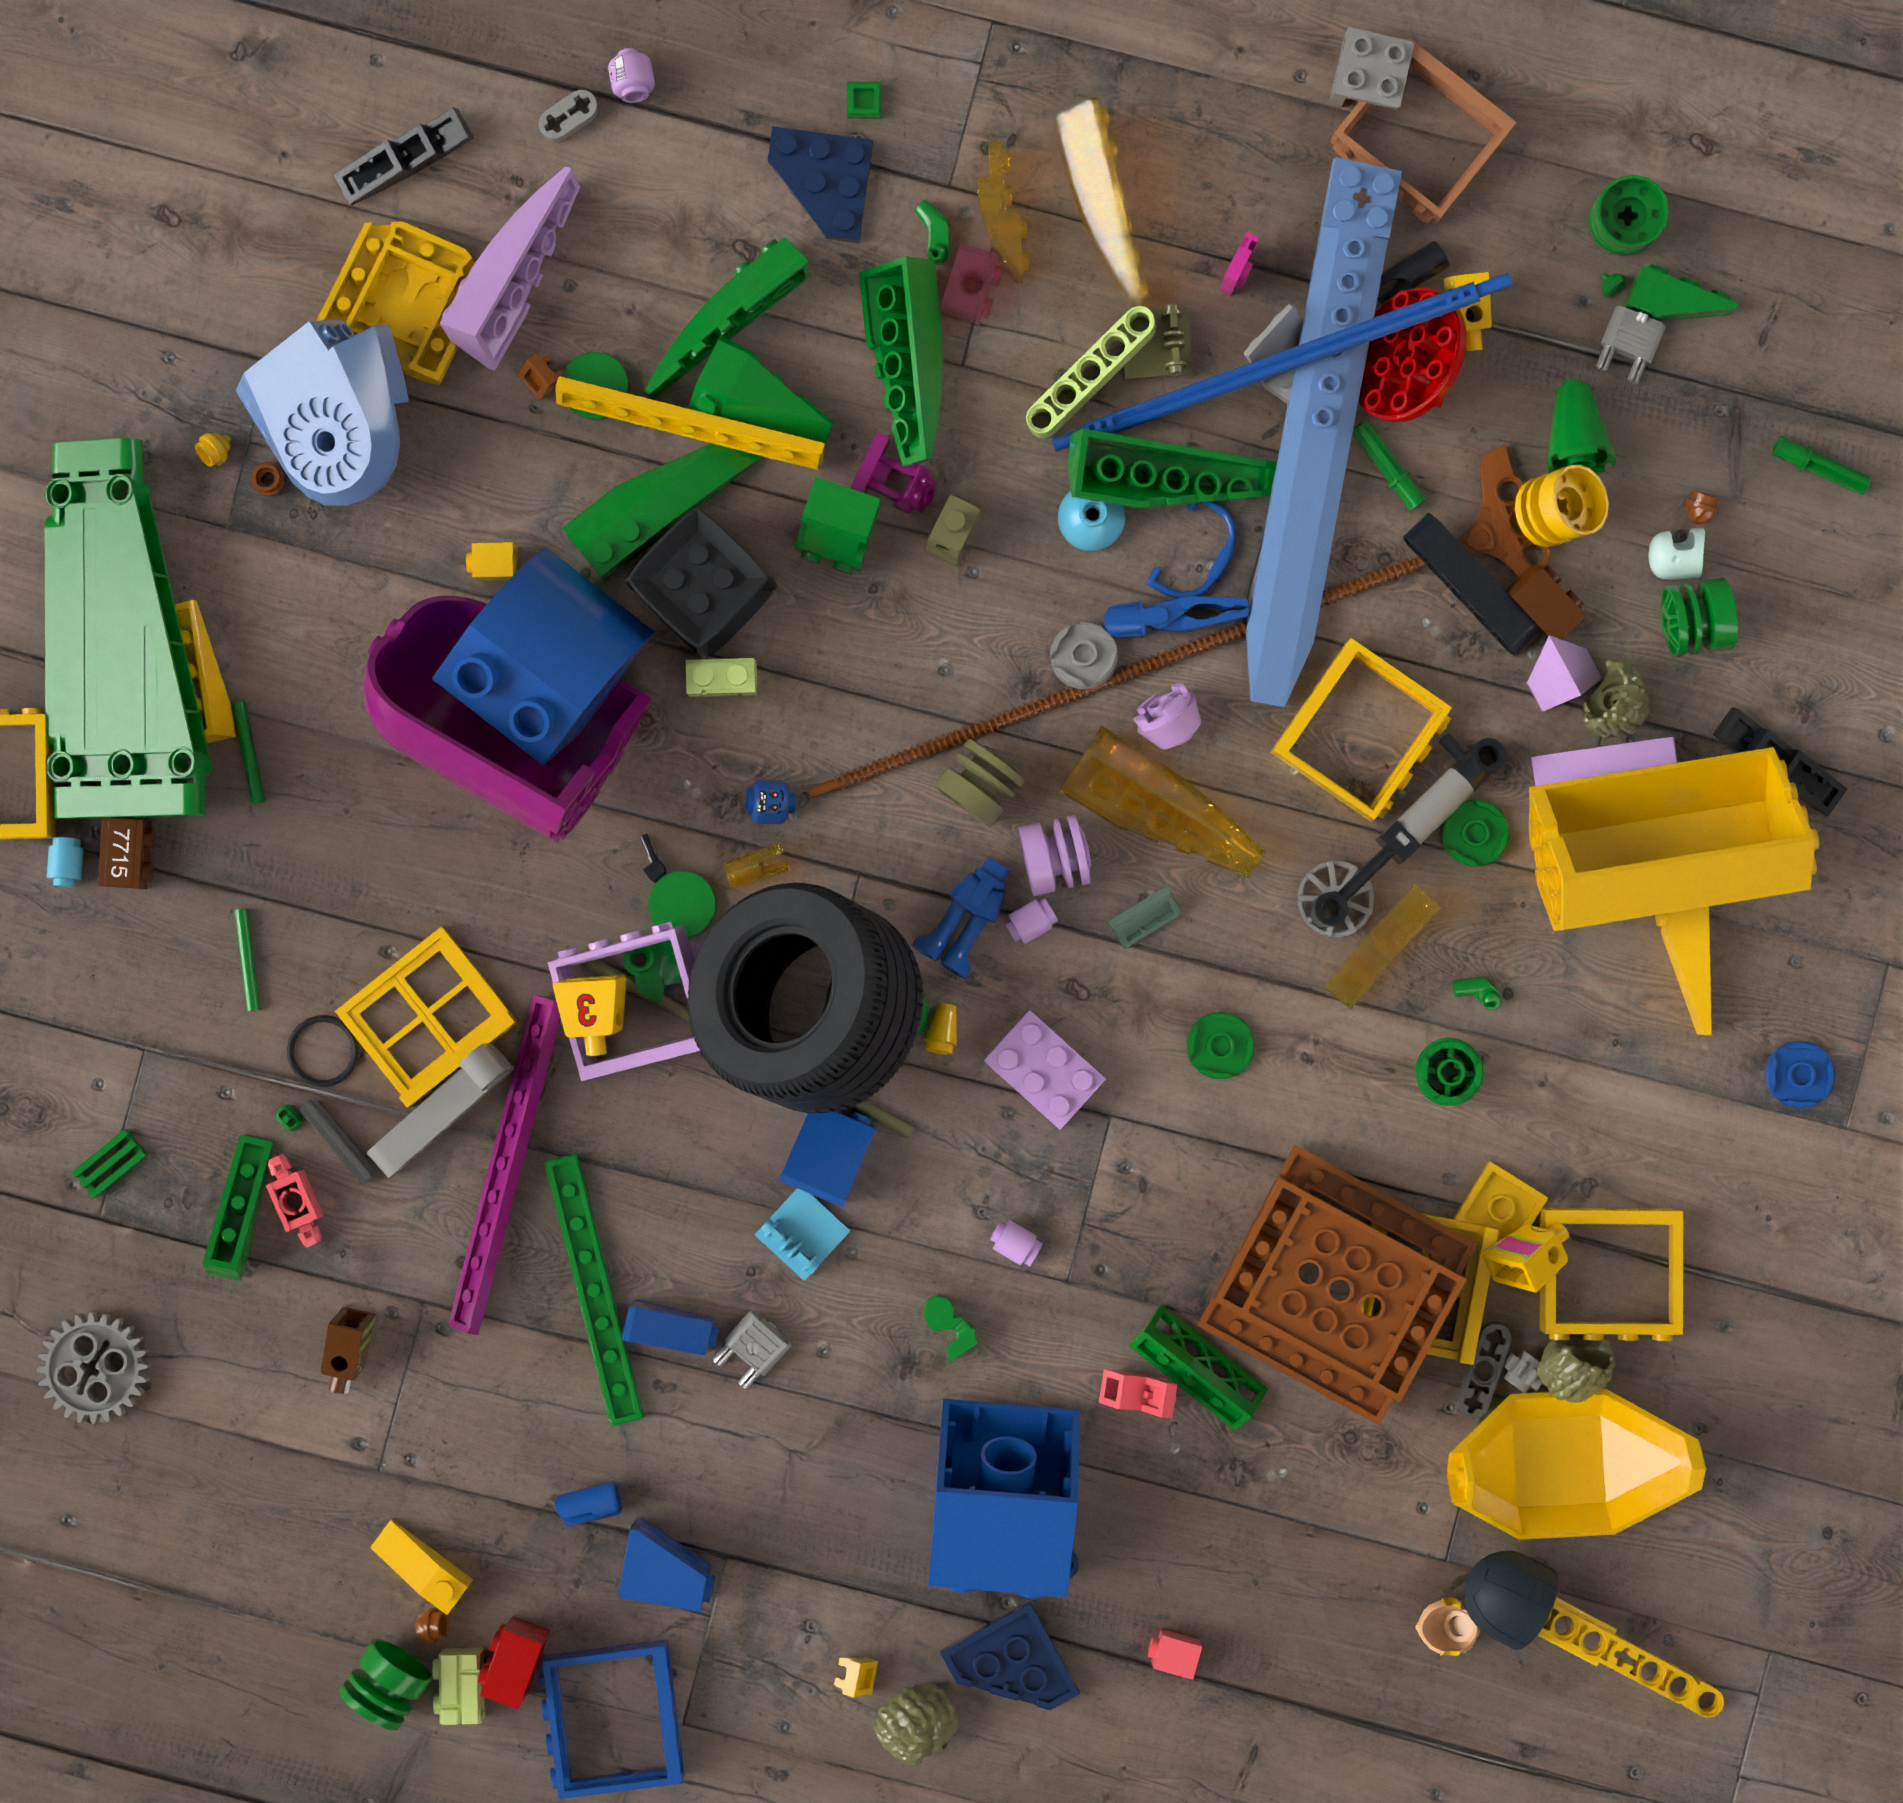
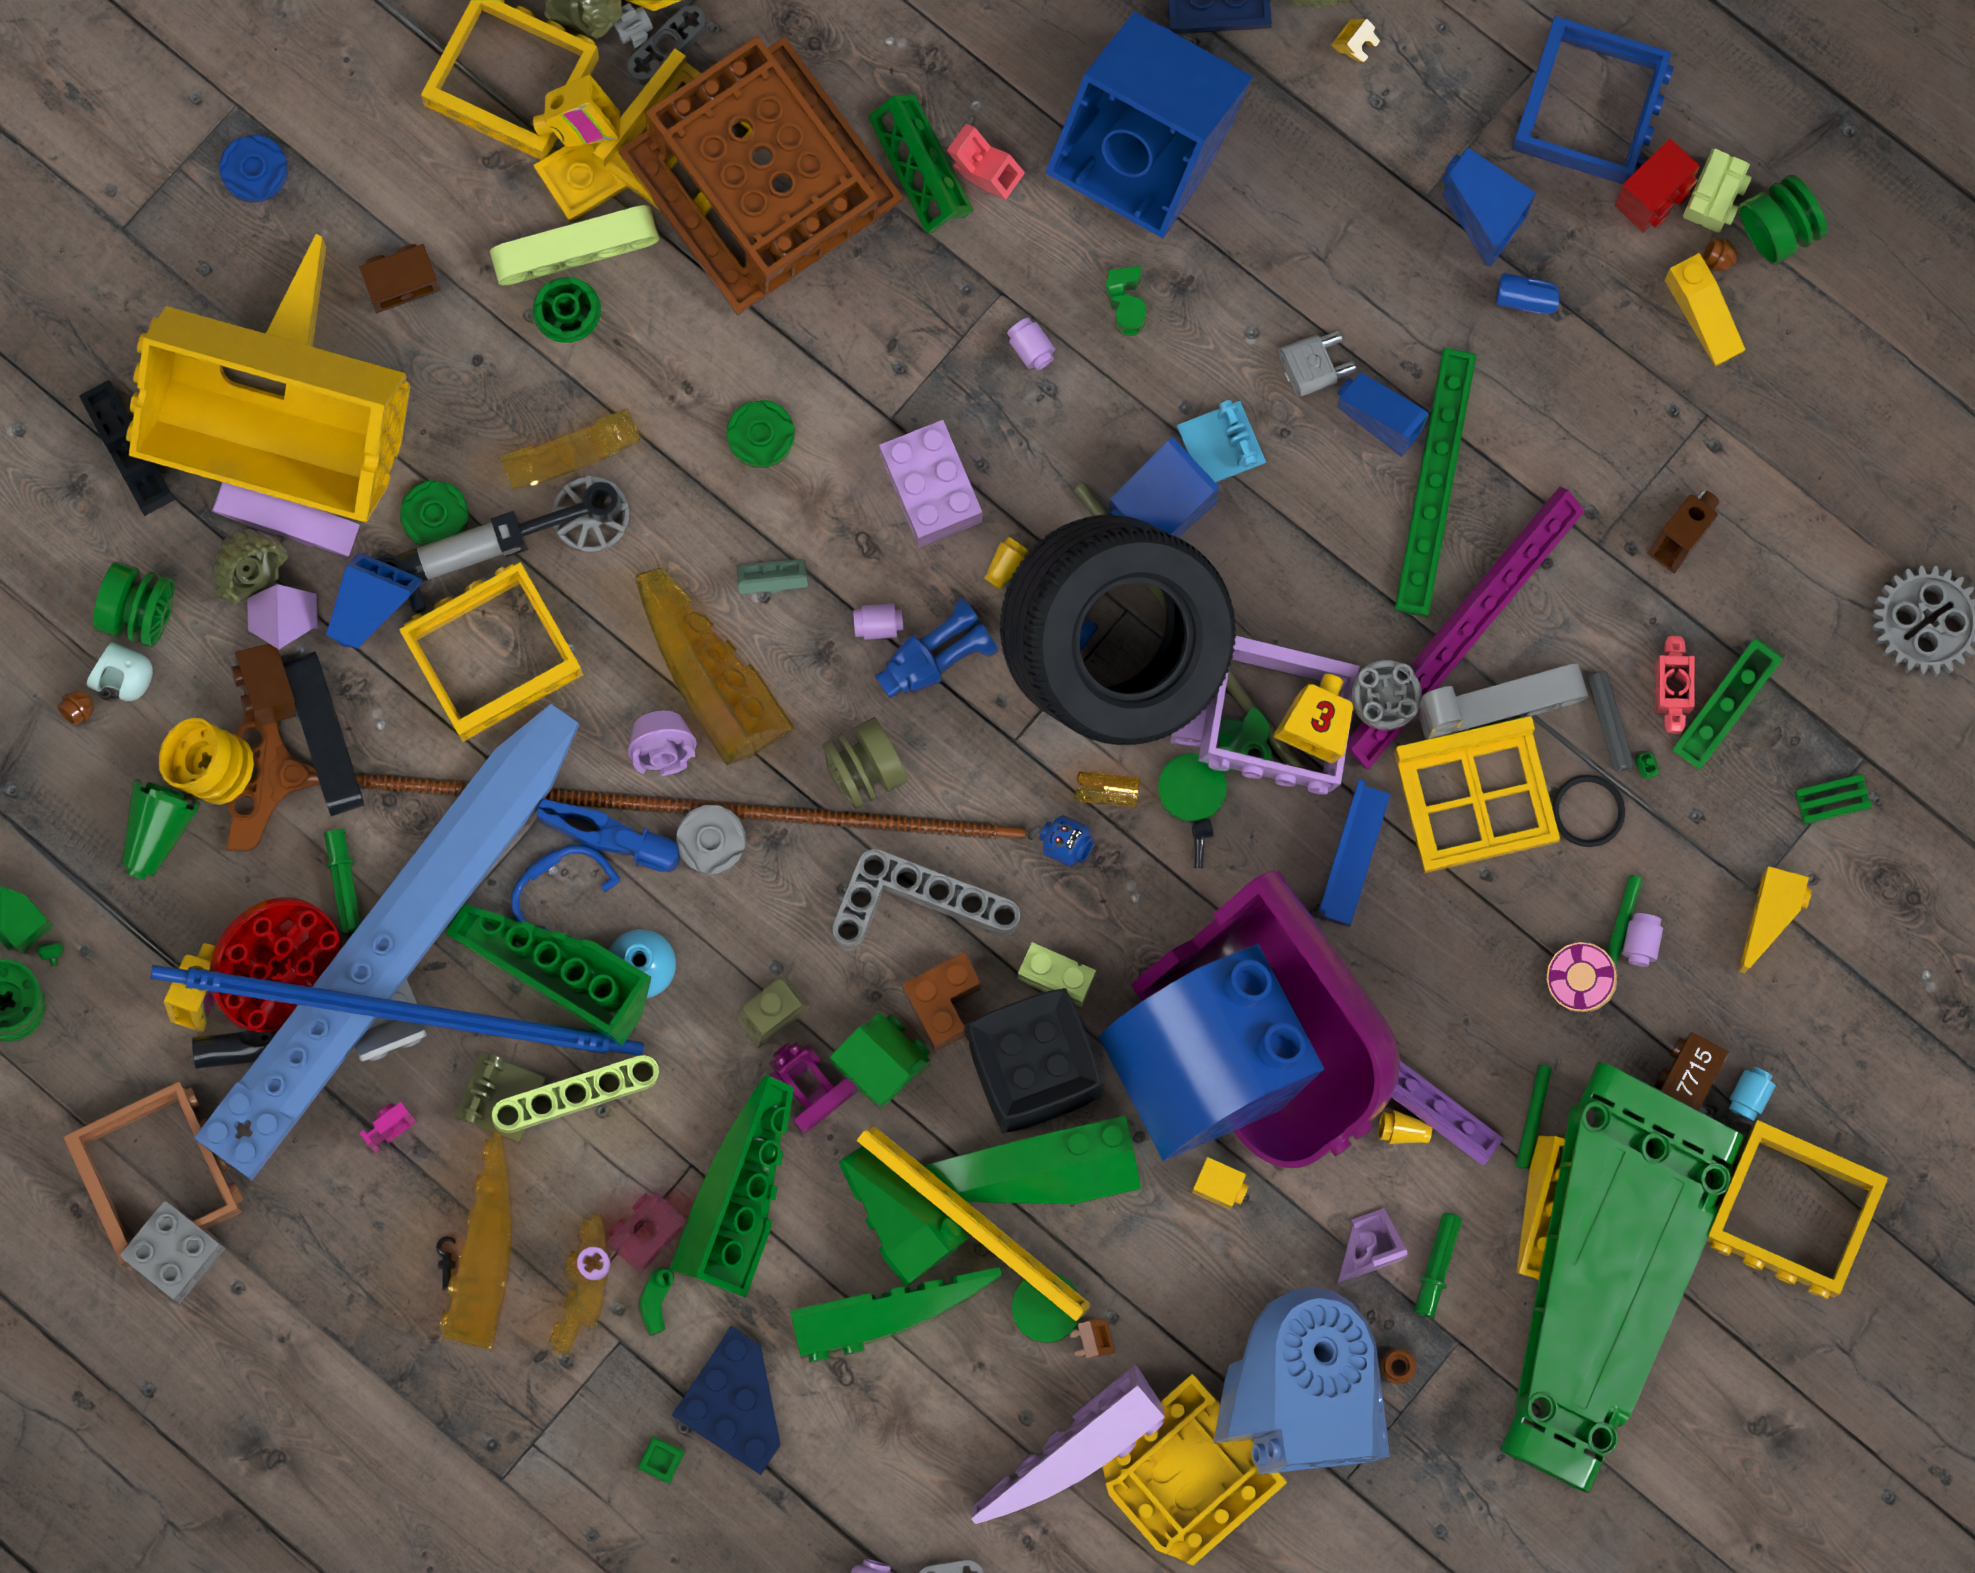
camera: 155 degrees left, 10 degrees down
(116, 1034) = (1776, 905): none -> yellow slope
(213, 448) = (1437, 1418): yellow plate -> none
(220, 954) = (1643, 939): none -> lavender brick
(259, 895) = (1582, 977): none -> tile
(272, 582) = (1438, 1265): none -> green axle
(321, 715) = (1445, 1115): none -> medium lavender tile
(337, 570) = (1371, 1245): none -> lavender slope
(348, 688) = (1402, 1129): none -> yellow cone
(511, 911) = (1353, 854): none -> blue panel
(544, 1064) = (1386, 695): none -> light grey tile
(820, 607) = (933, 998): none -> dark orange brick
(877, 693) = (918, 893): none -> light grey beam
(1008, 235) = (591, 1253): none -> lavender bush
(1054, 855) = (827, 666): lavender wheel -> none
(1130, 178) = (445, 1264): none -> black hand
(1473, 1139) = (574, 245): none -> yellowish green beam
(1481, 989) = (499, 372): green arm -> none
(1492, 720) = (367, 599): none -> blue slope
(1616, 1033) = (399, 277): none -> reddish brown brick
(1631, 336) = (58, 894): light grey piece -> none

